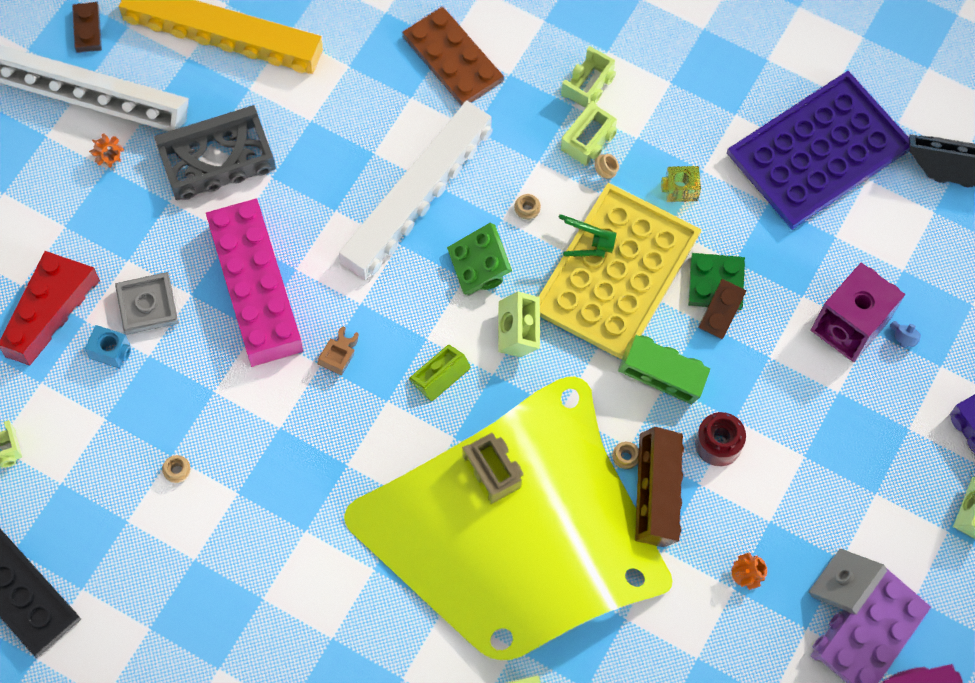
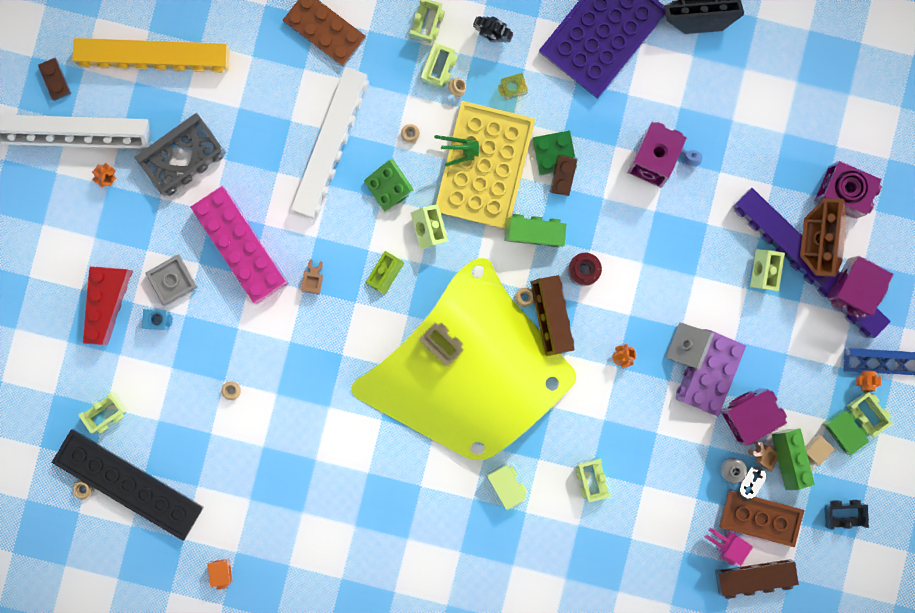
camera: 15 degrees left, 20 degrees up
(673, 105) = (493, 29): none -> black gear

